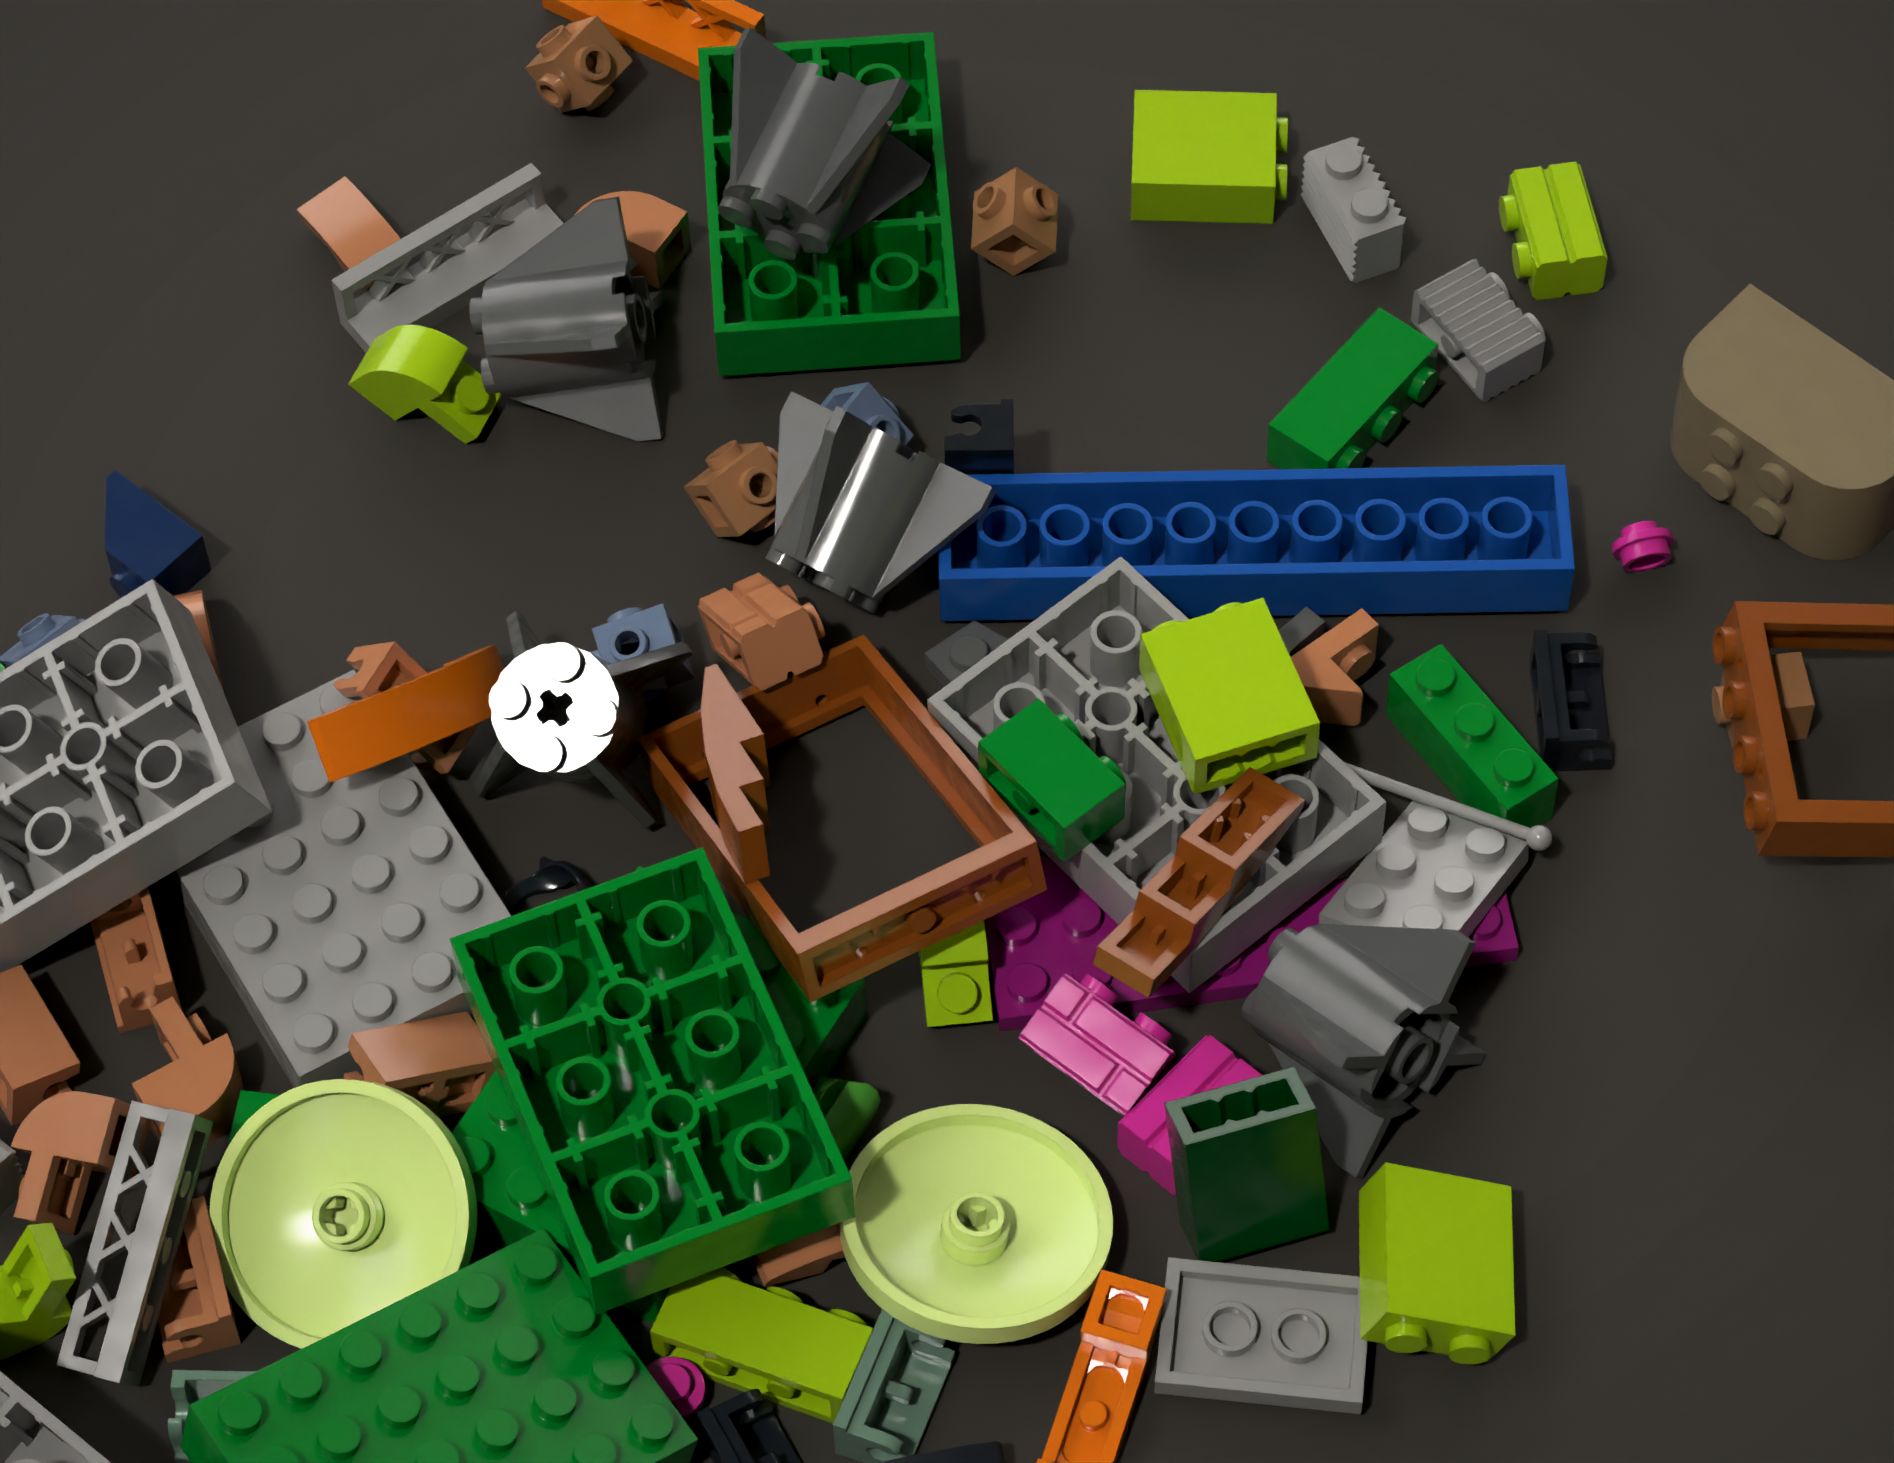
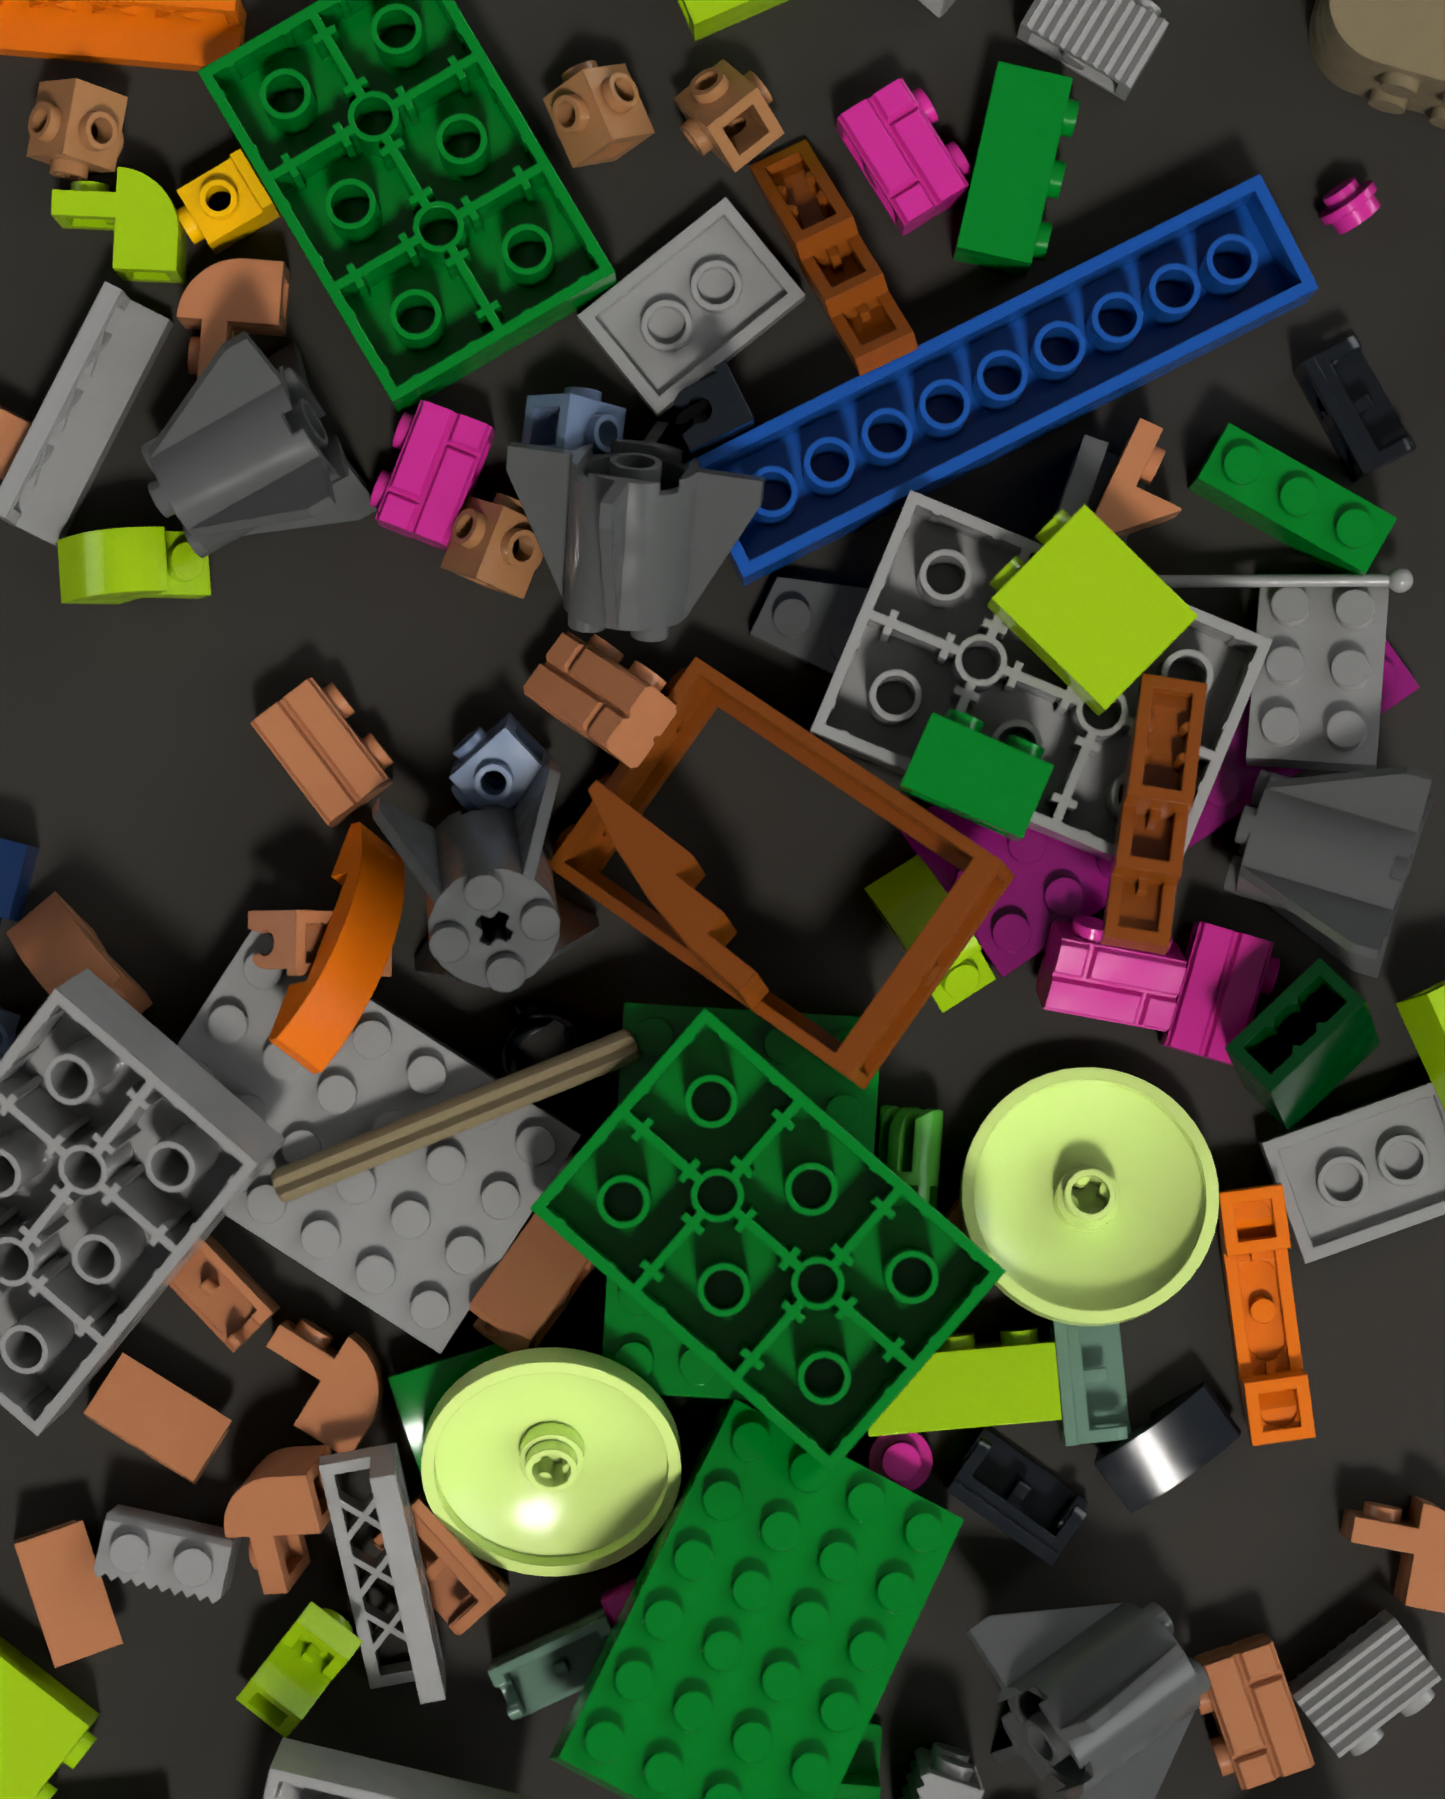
camera: 30 degrees left, 30 degrees up
(418, 873) = (455, 1115): none -> dark tan axle
(496, 578) = (323, 750): none -> nougat brick
(581, 147) = (145, 224): none -> lime brick
(667, 166) = (246, 213): none -> yellow brick
(726, 406) = (433, 473): none -> dark pink brick
(811, 151) = (399, 186): dark grey brick -> none
(1049, 374) = (691, 306): none -> light grey plate
(1143, 270) = (728, 115): none -> medium nougat brick
(1157, 396) = (833, 257): none -> dark orange slope
(1261, 352) = (904, 155): none -> dark pink brick

